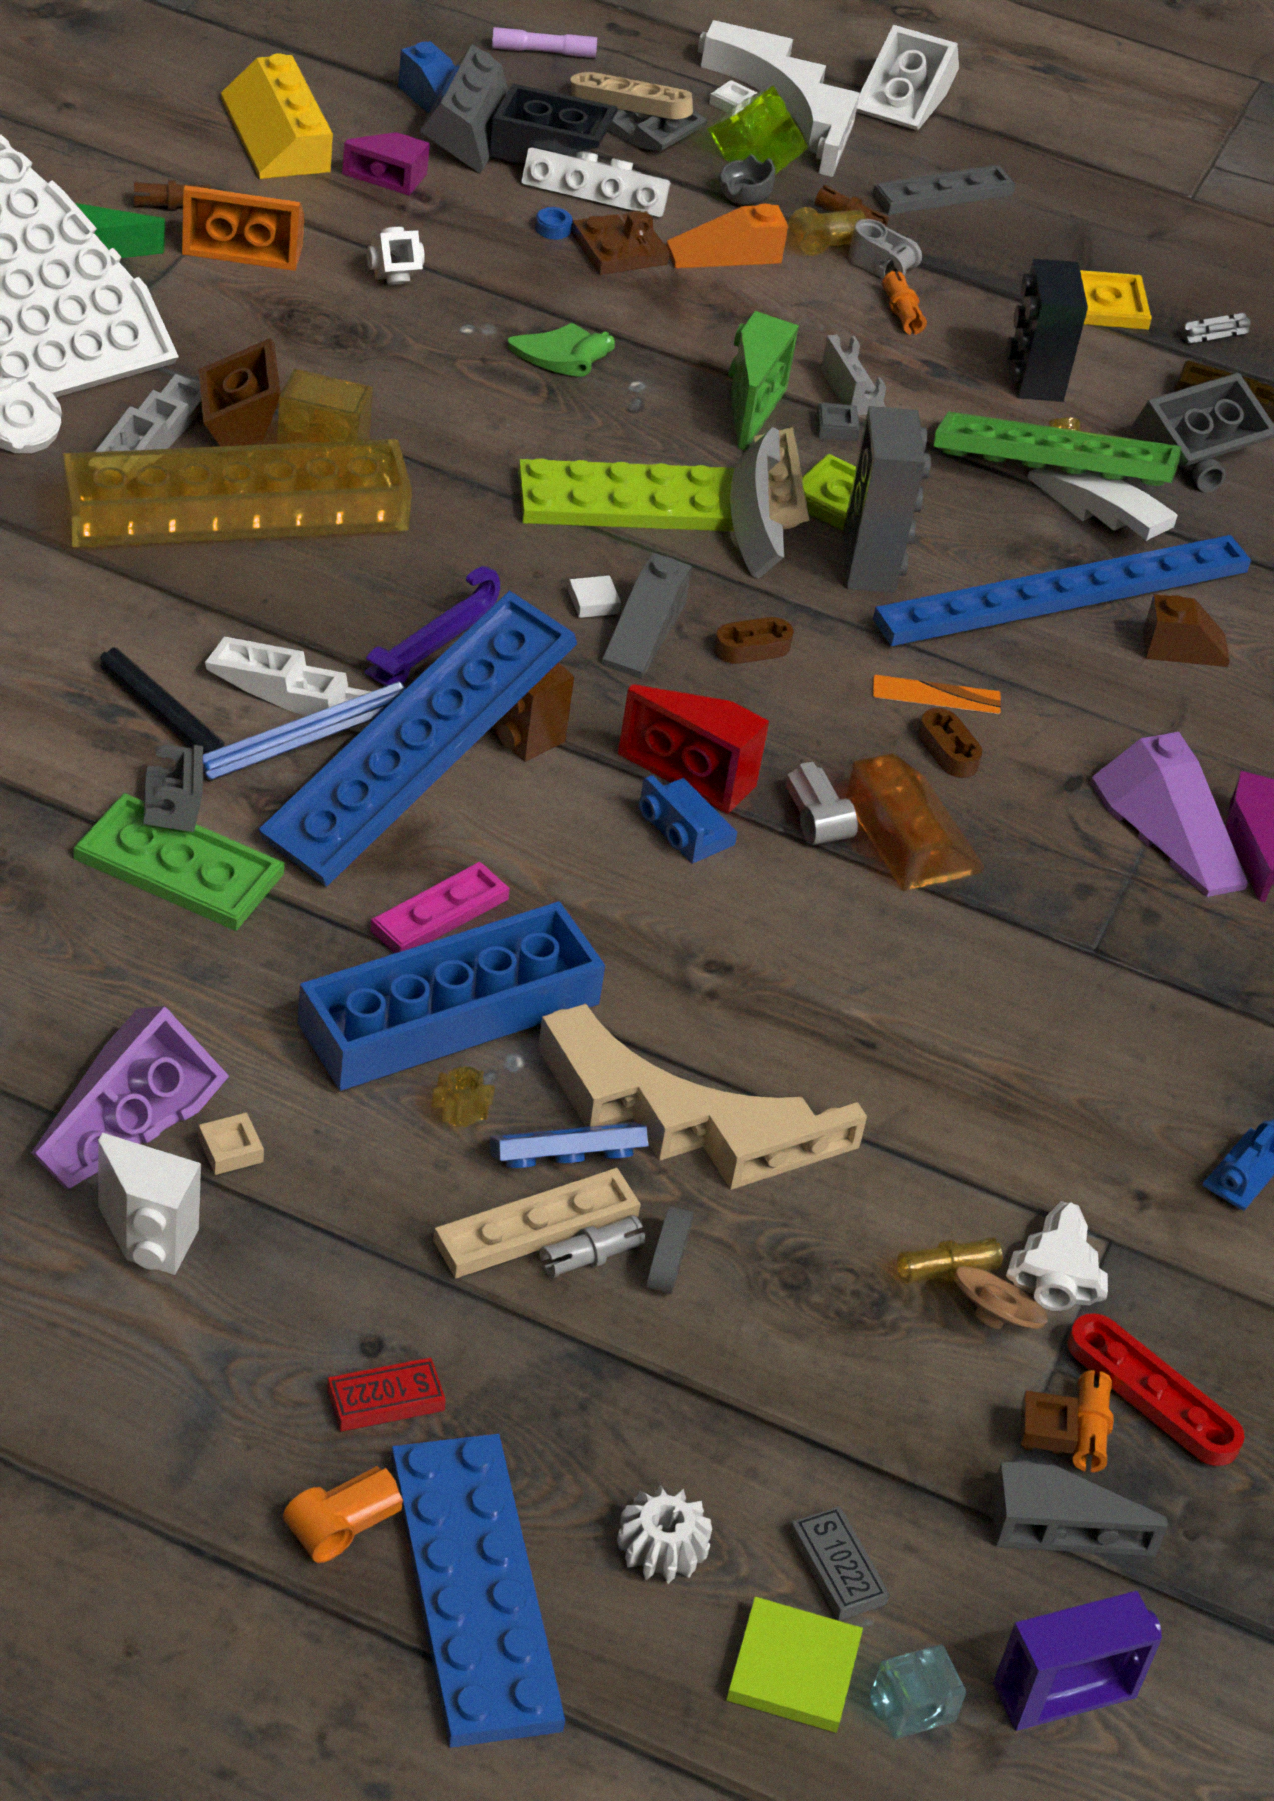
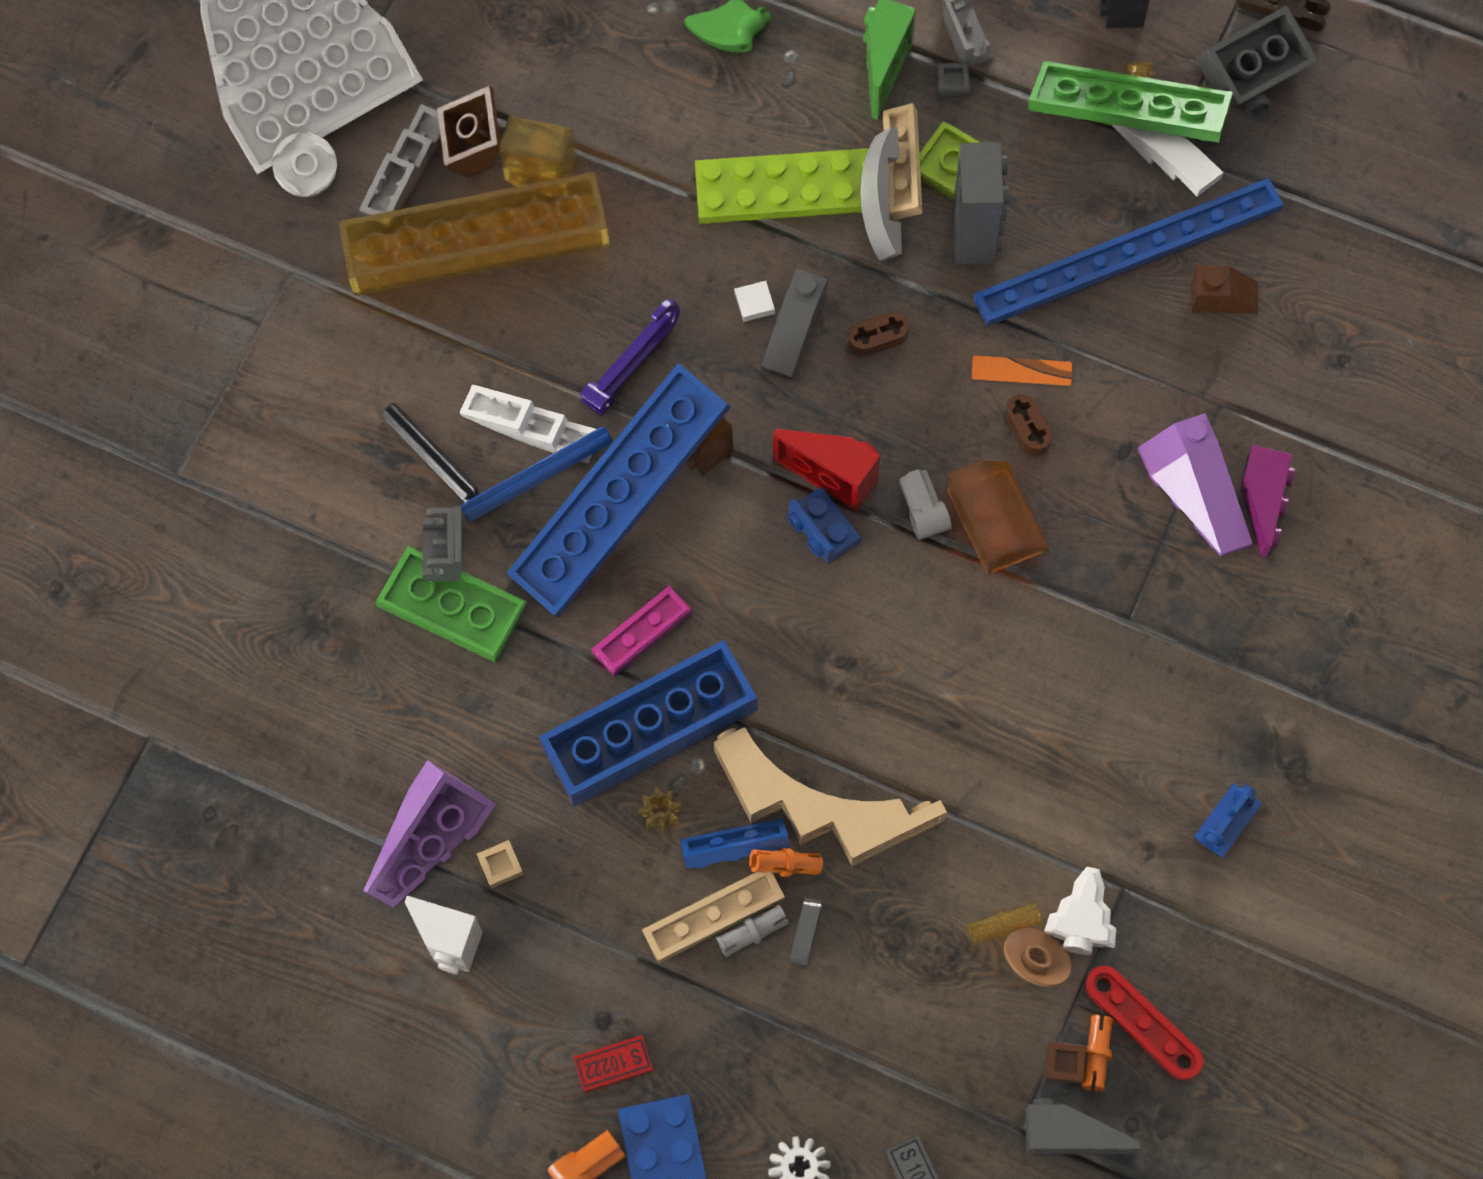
camera: 10 degrees right, 25 degrees up
(642, 1162) = (786, 862): none -> orange pin

